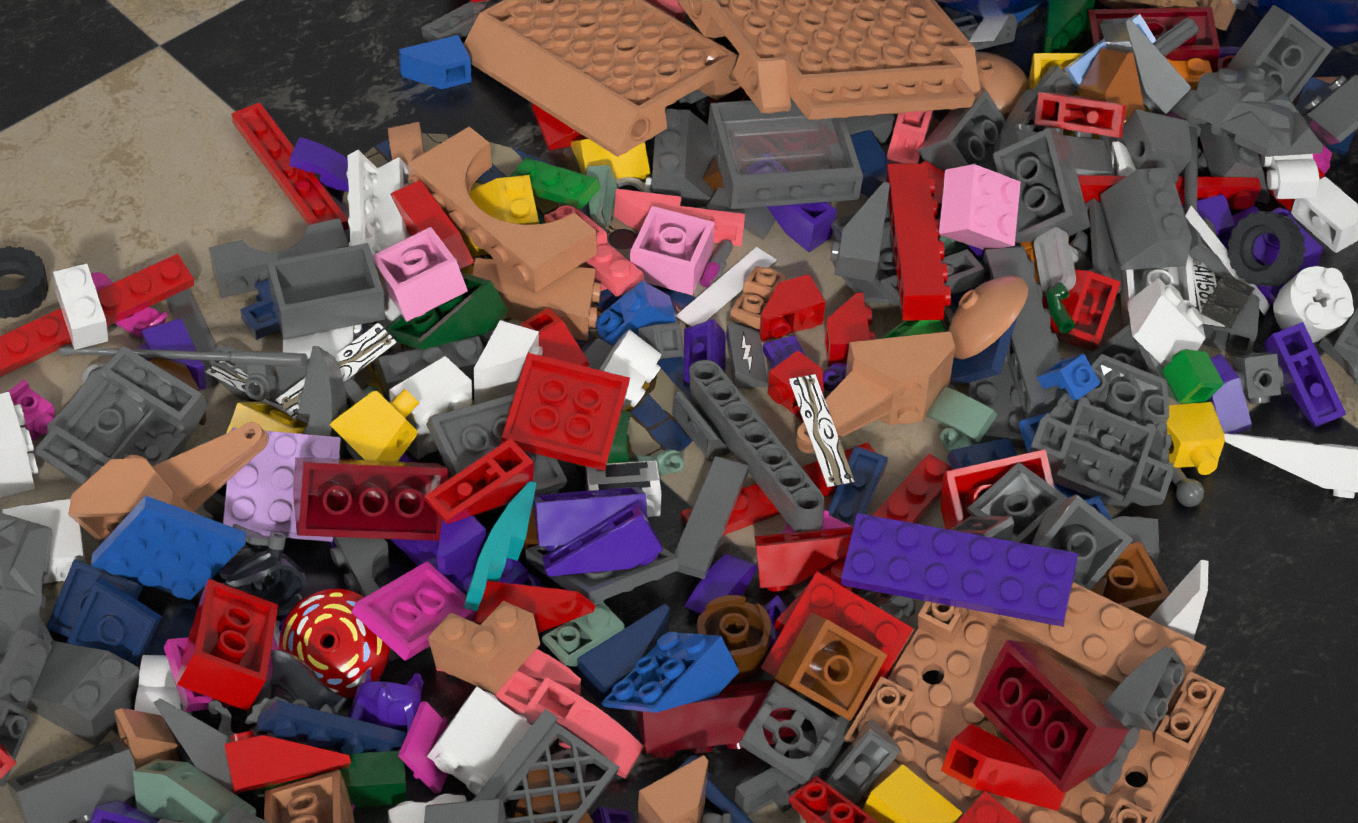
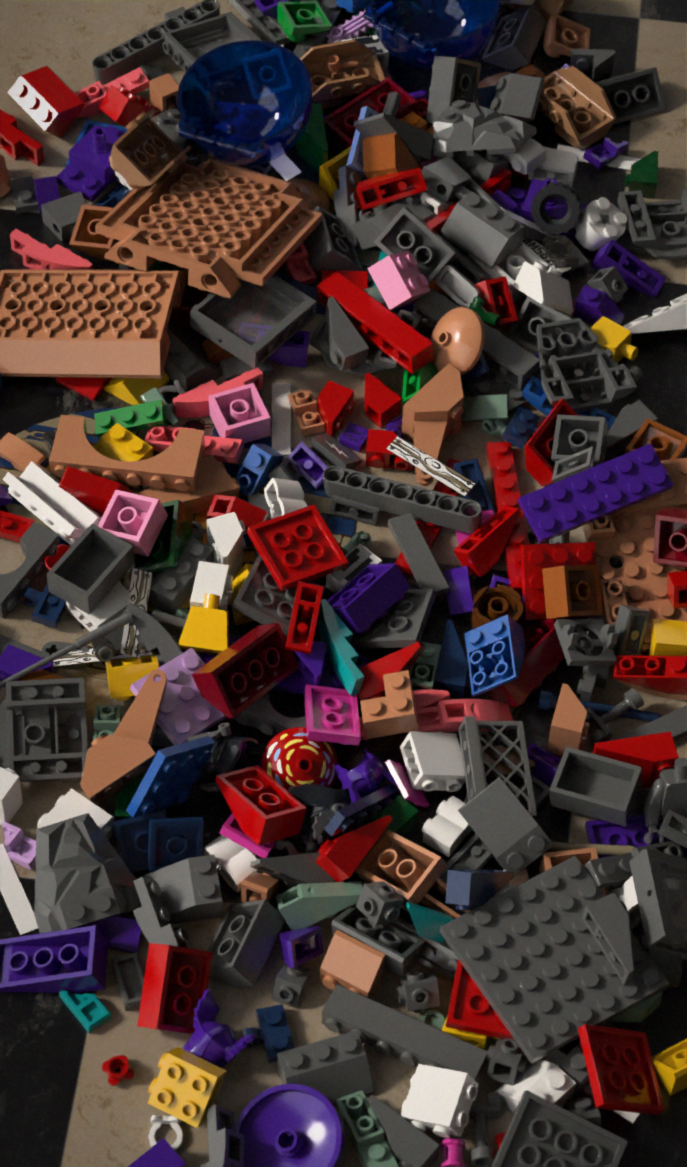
camera: 40 degrees left, 5 degrees up
(612, 545) = (399, 607): dark purple slope -> none
(1073, 374) = (534, 345): blue bracket -> none
(1082, 530) = (629, 433): dark grey slope -> none
(1192, 376) = (586, 307): green brick -> none

